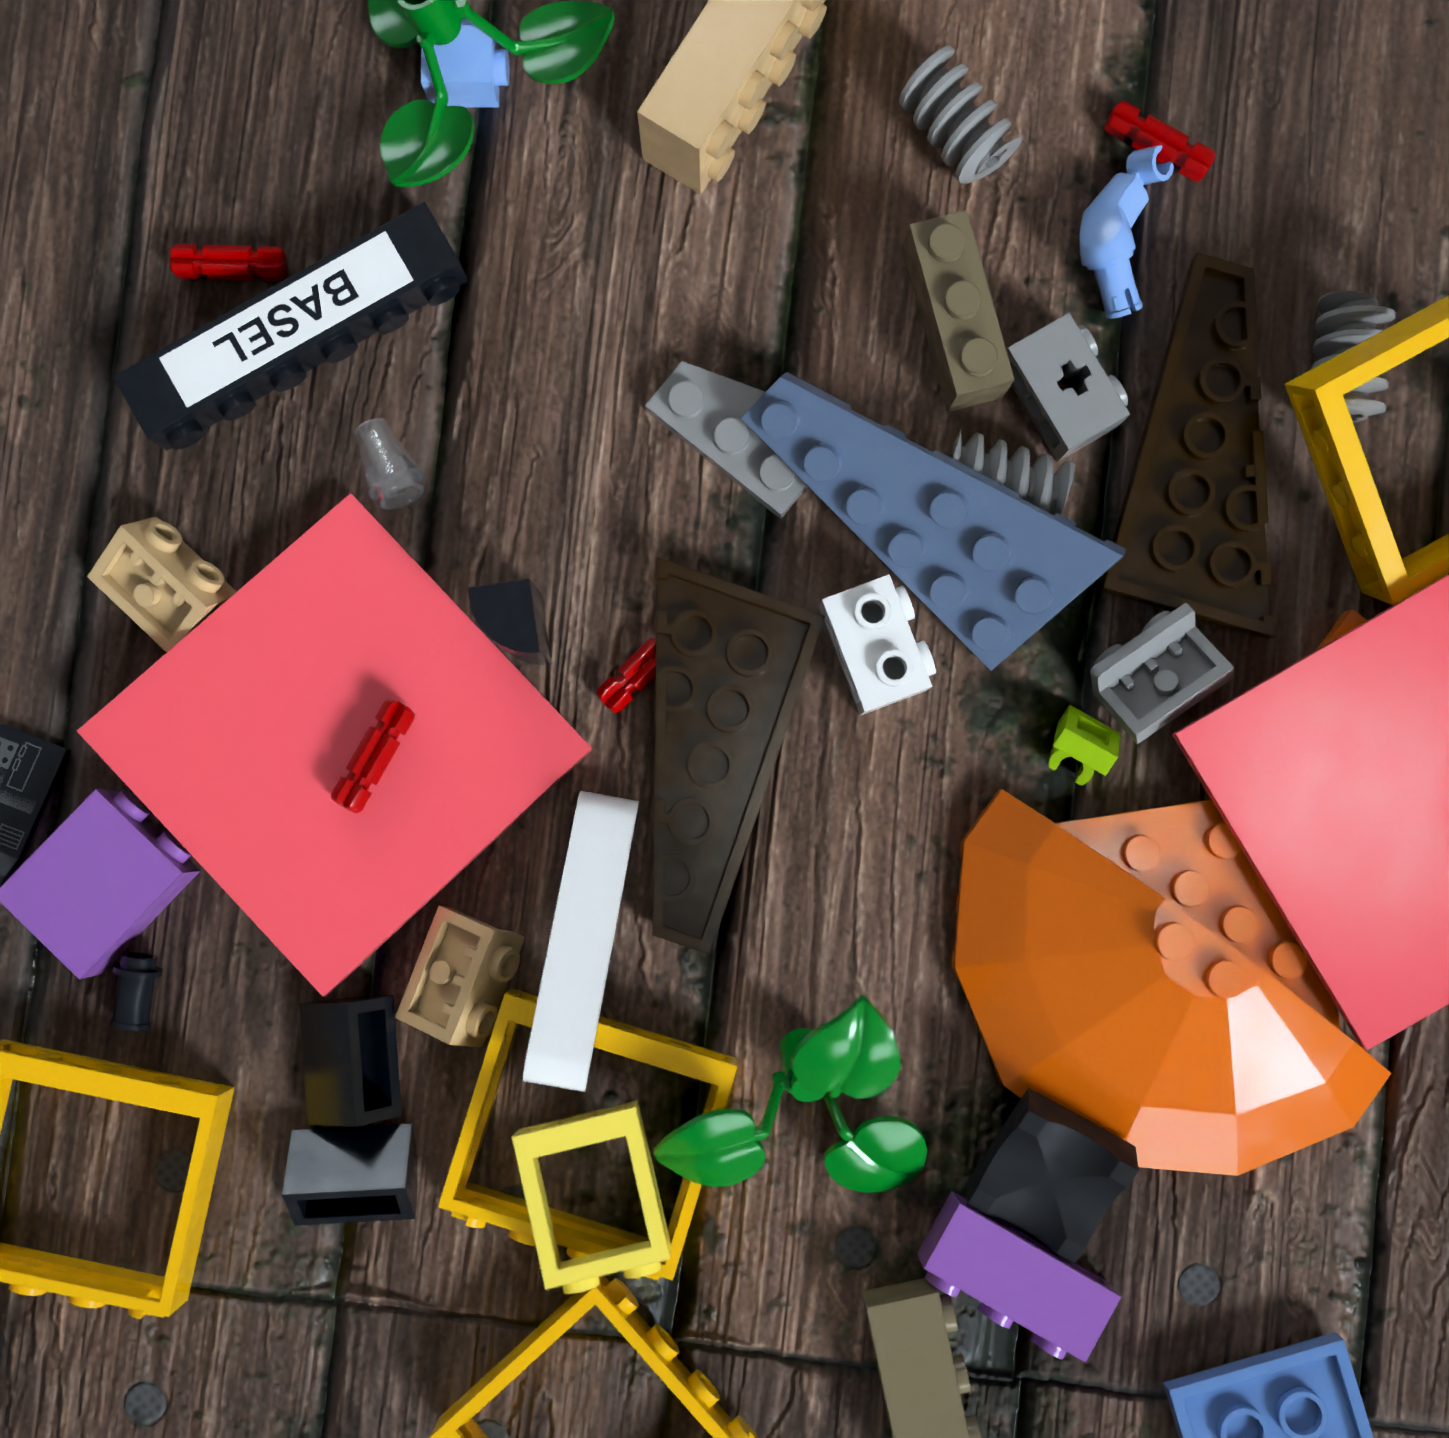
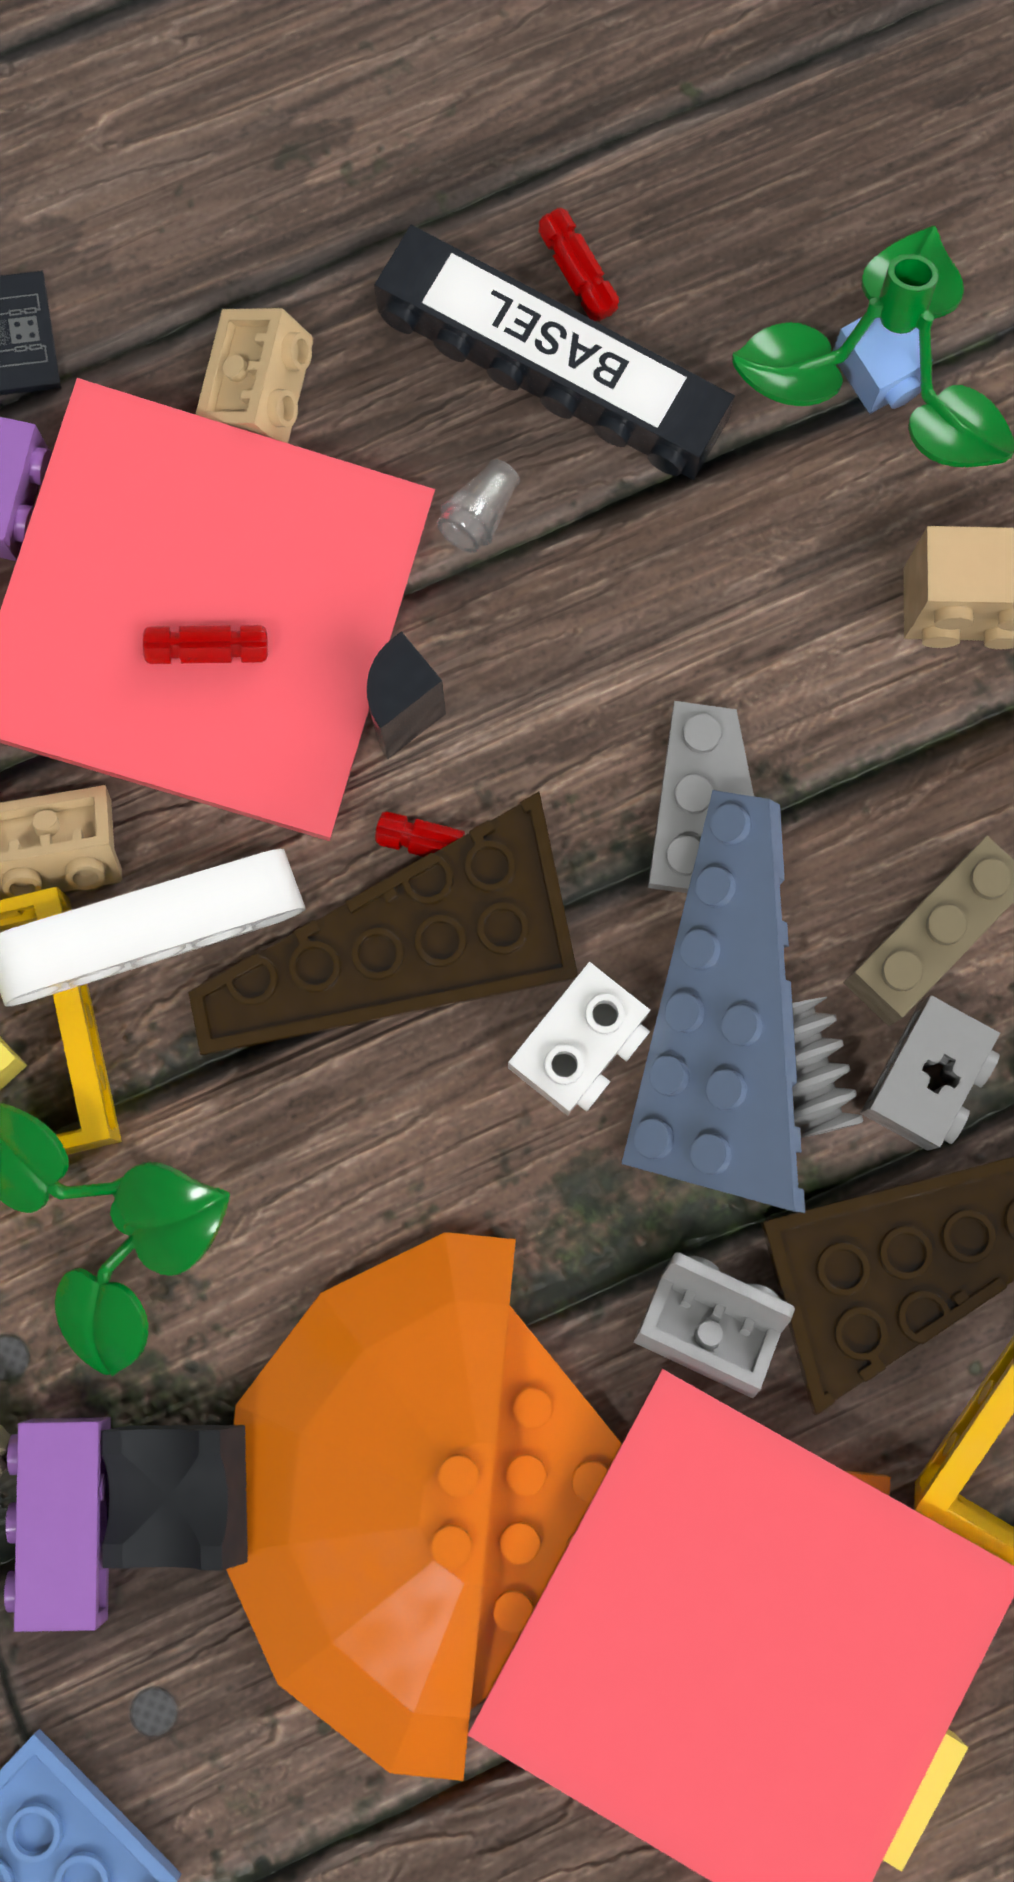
camera: 60 degrees right, 5 degrees down
(1085, 741) = (606, 1292): lime tile -> none

